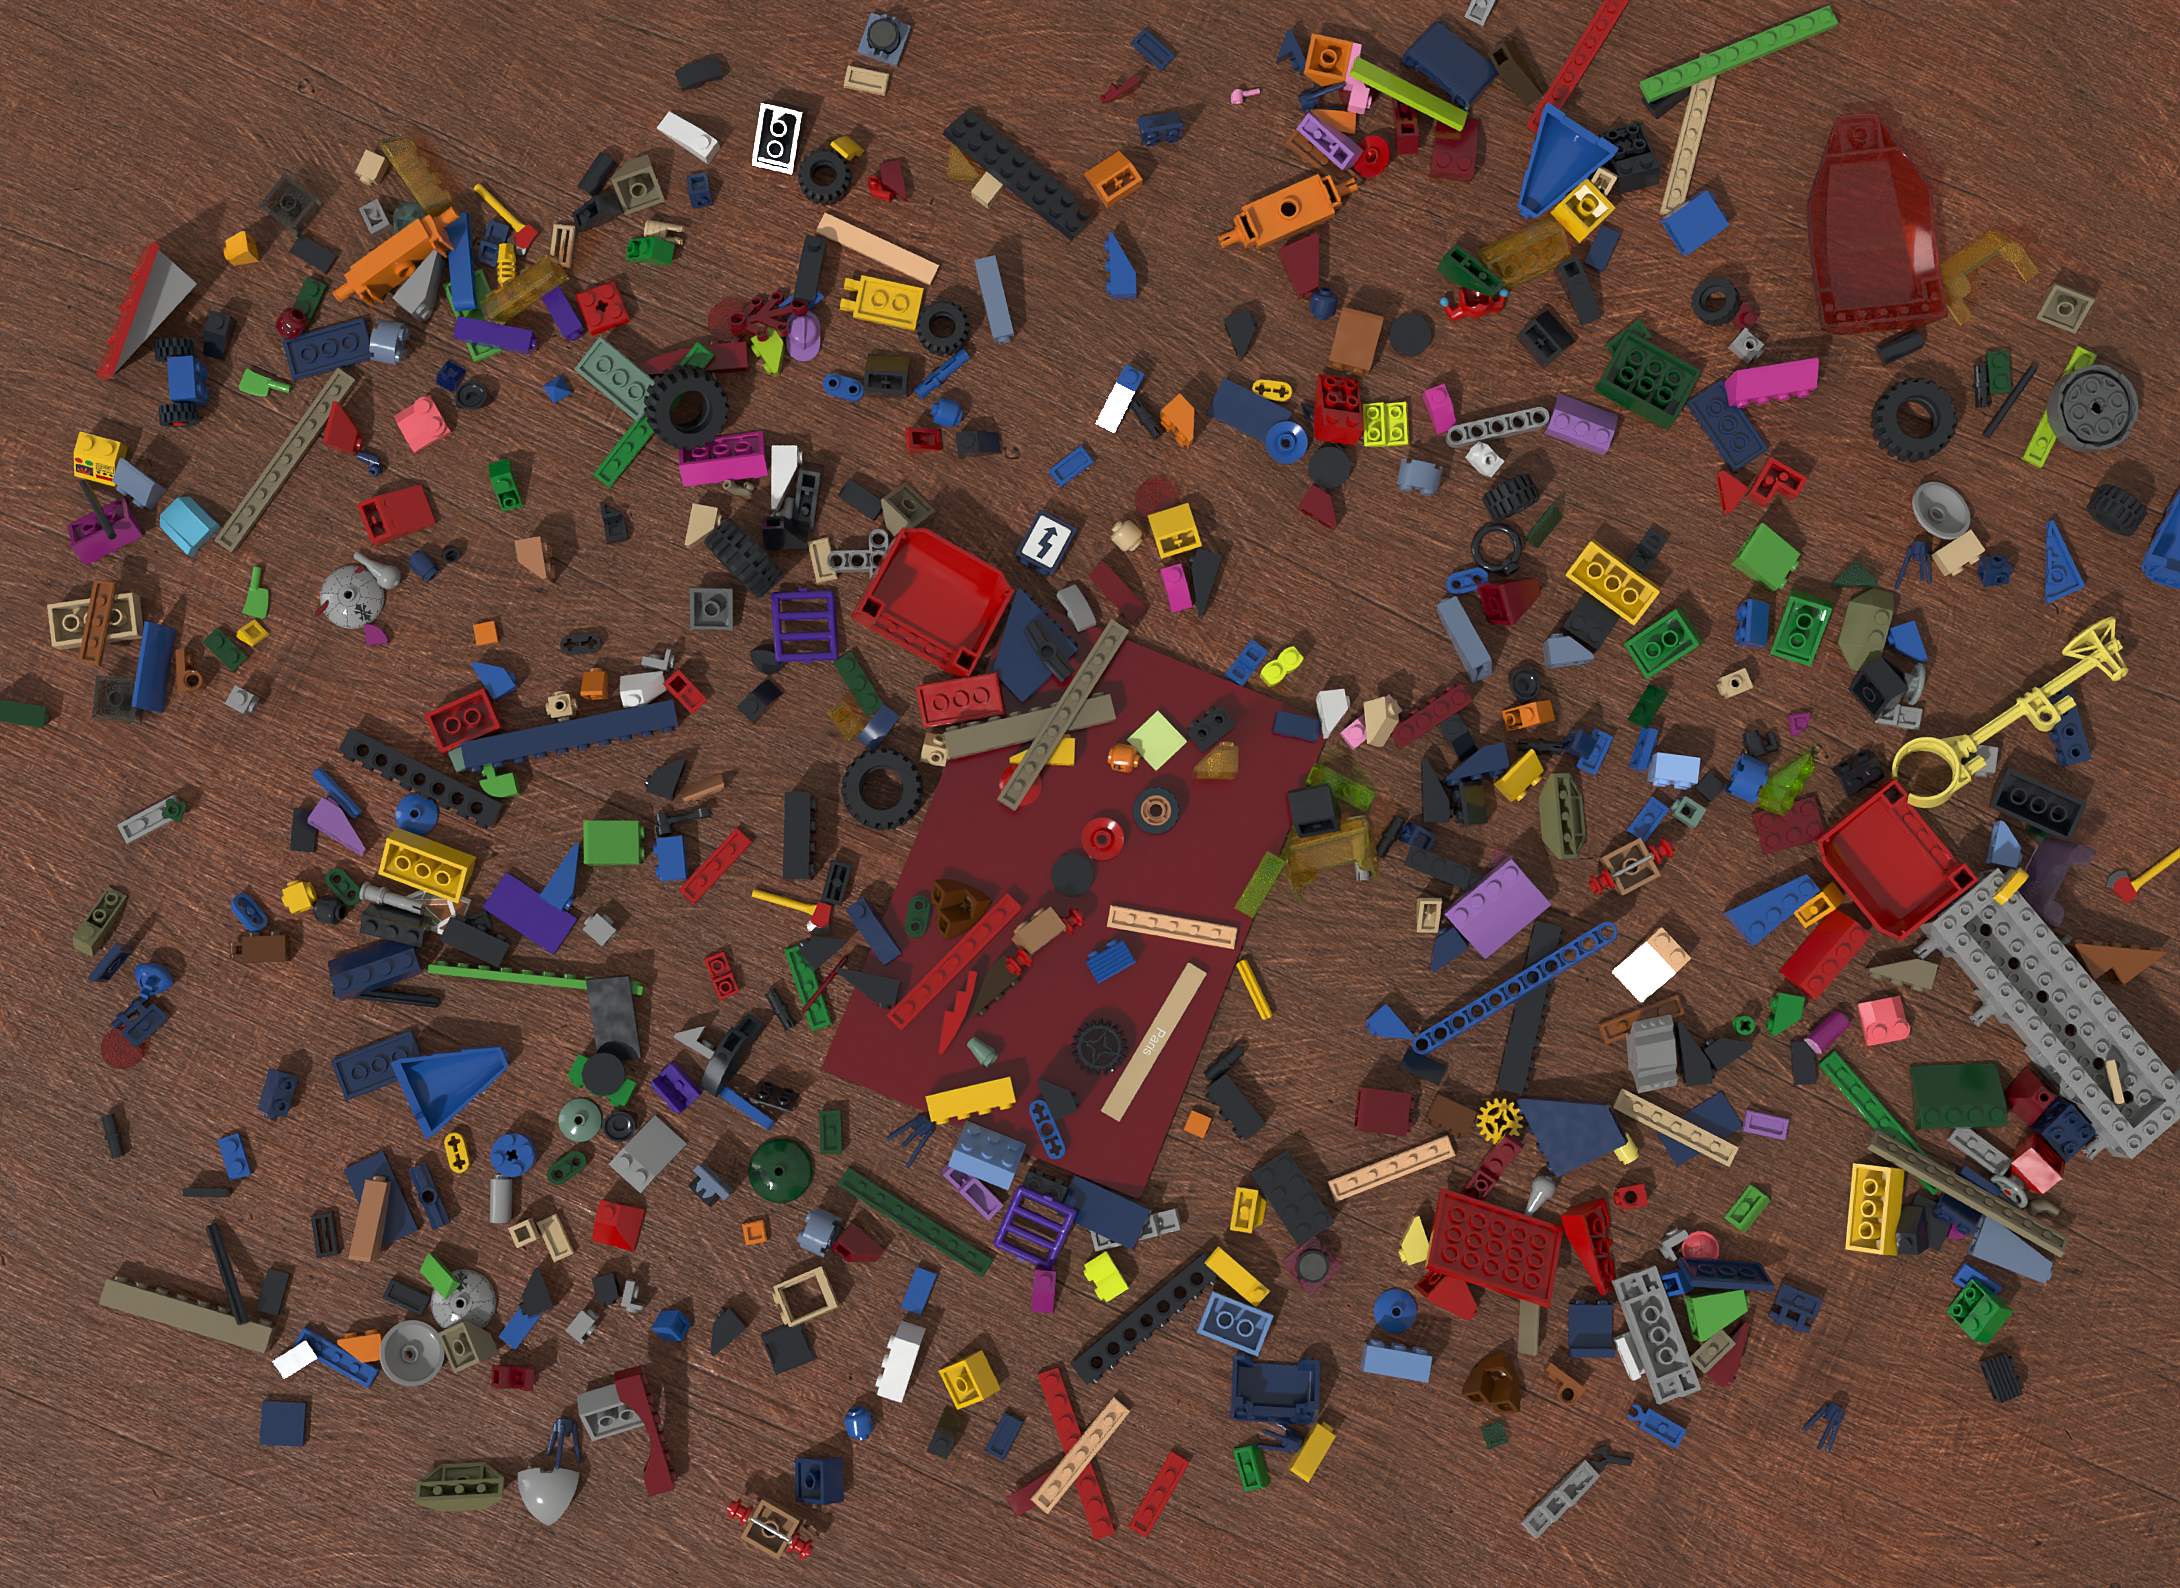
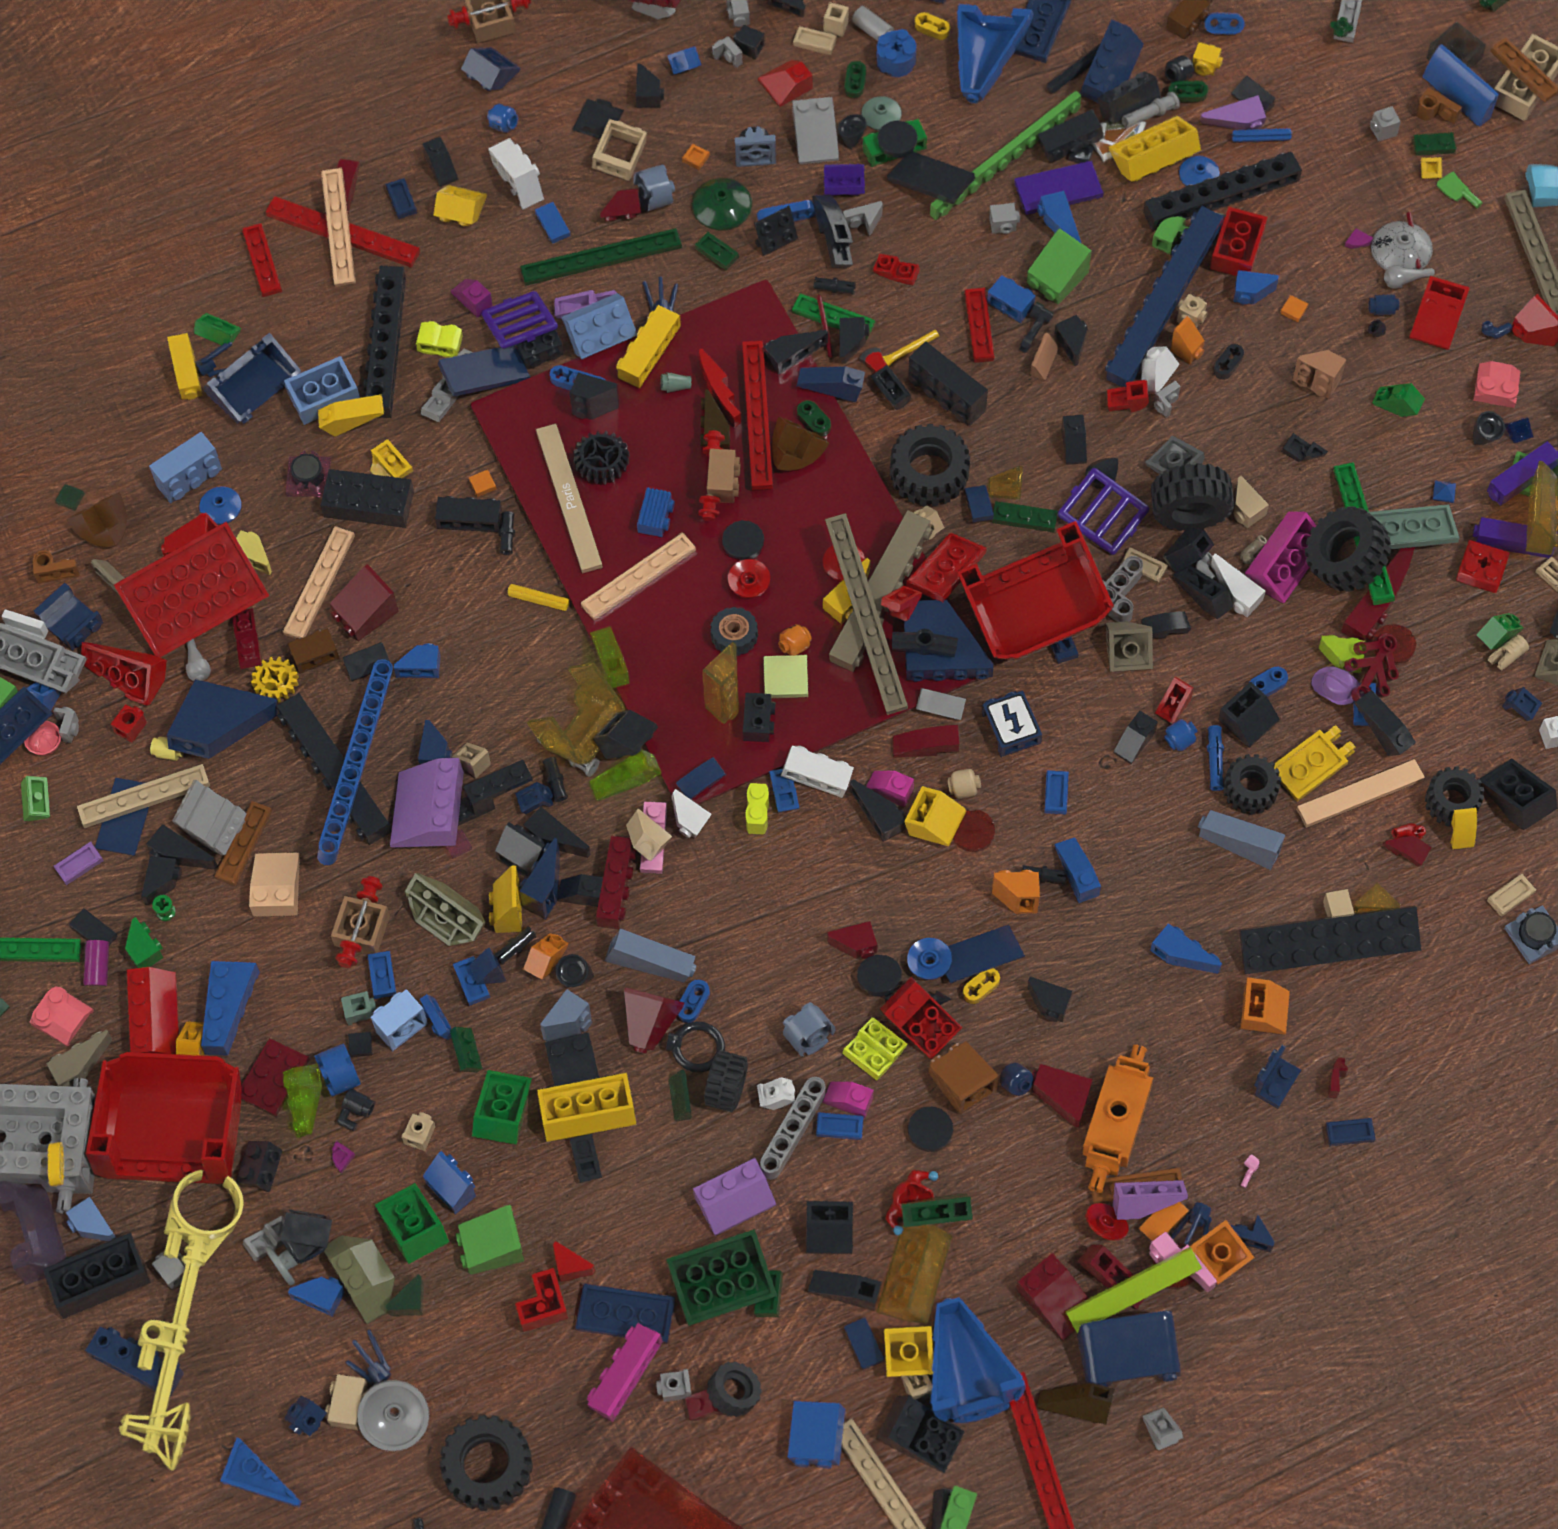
camera: 135 degrees right, 20 degrees down
(1027, 698) = (902, 602): none -> red slope
(1213, 648) = (817, 771): none -> white brick
(1464, 399) = (839, 1126): none -> blue tile

